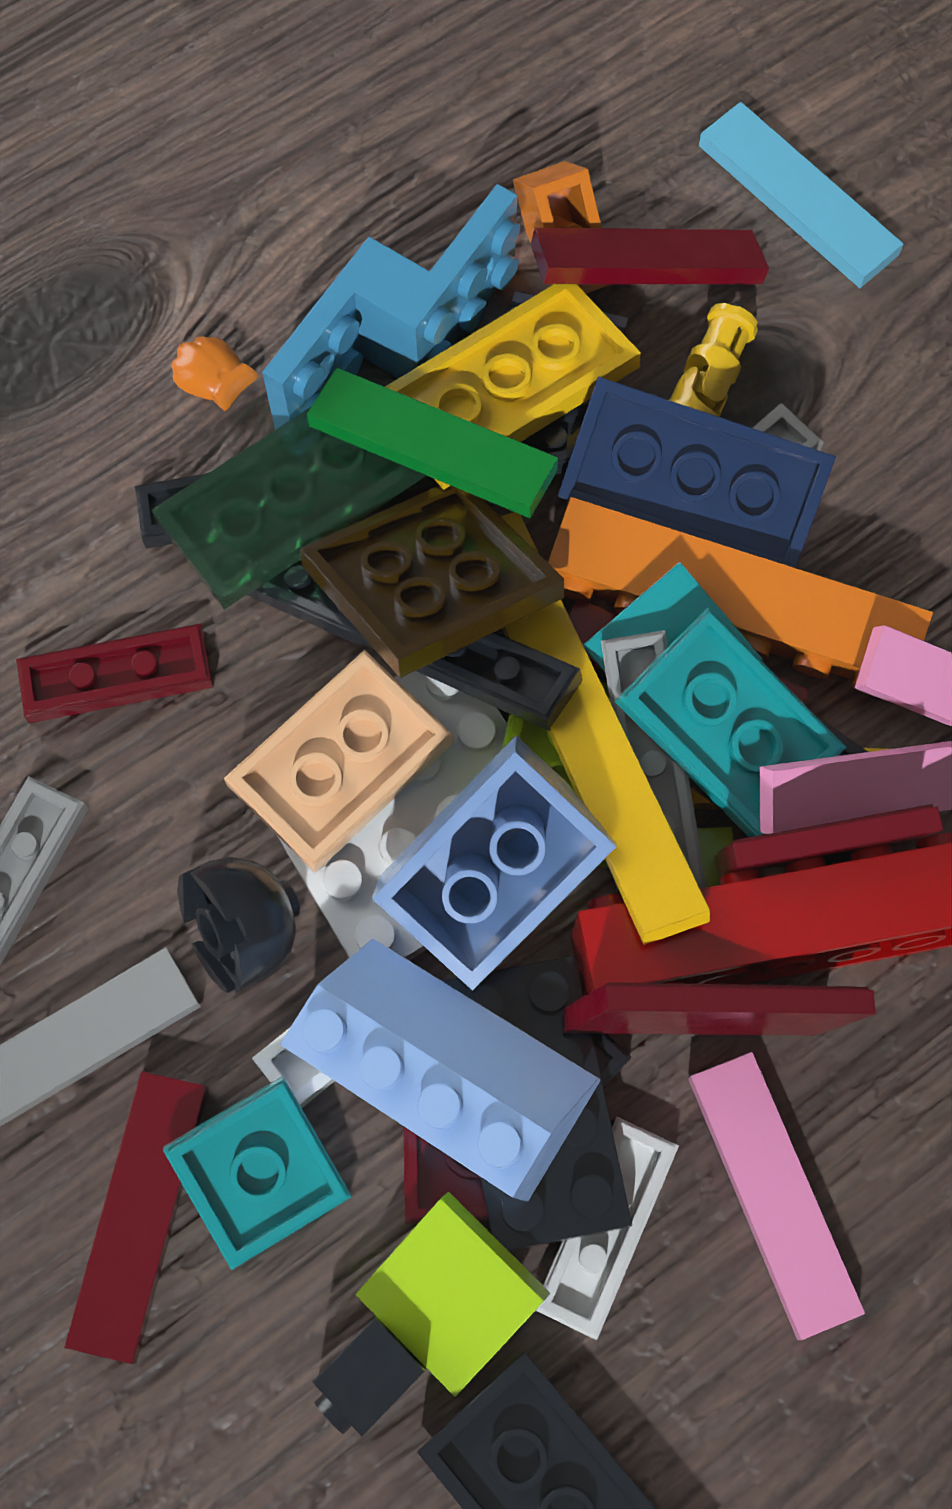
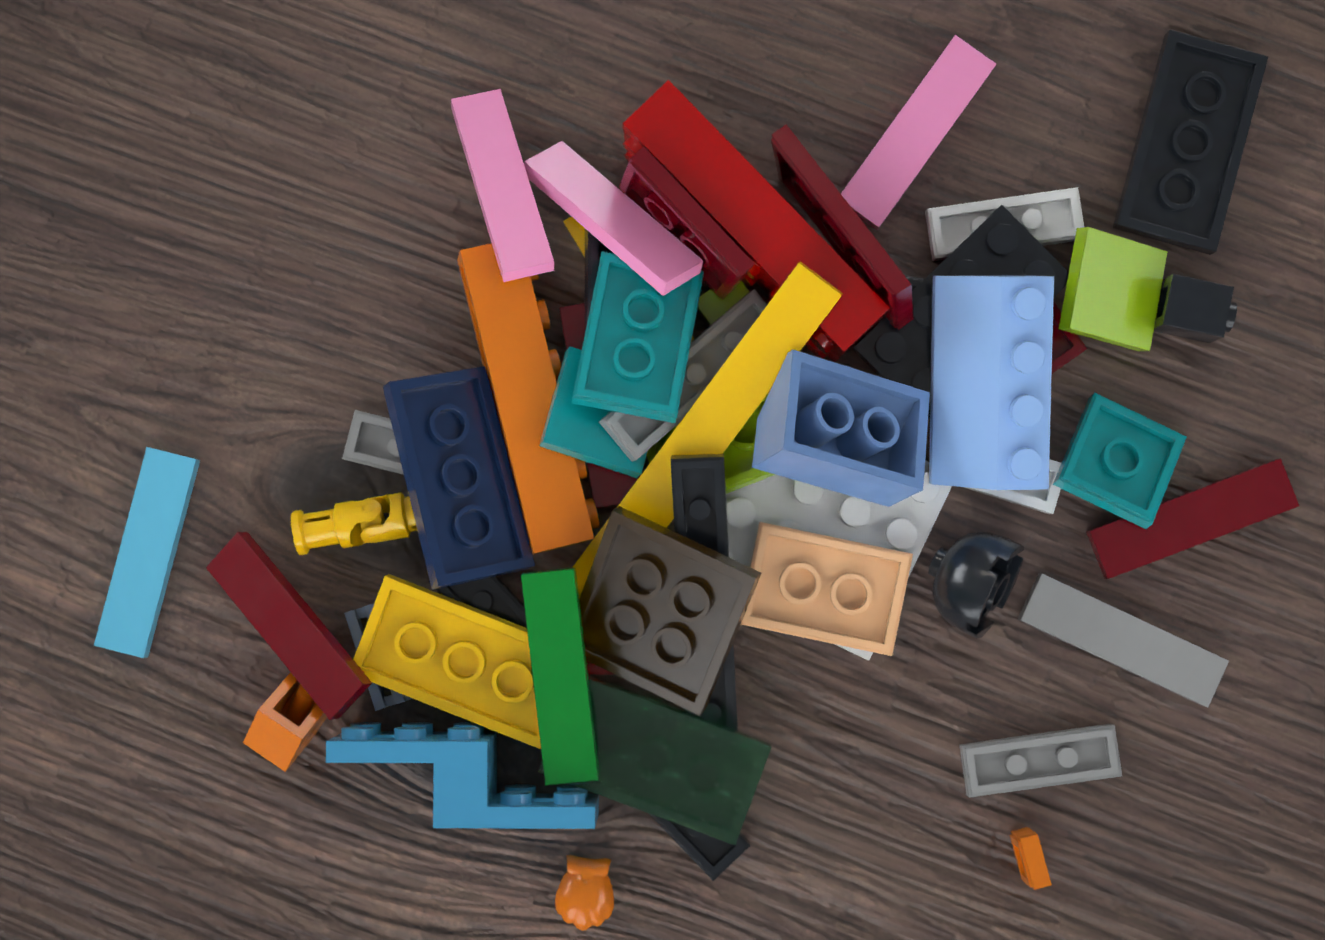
camera: 120 degrees left, 15 degrees up
(114, 673) = (856, 794): dark red tile -> none

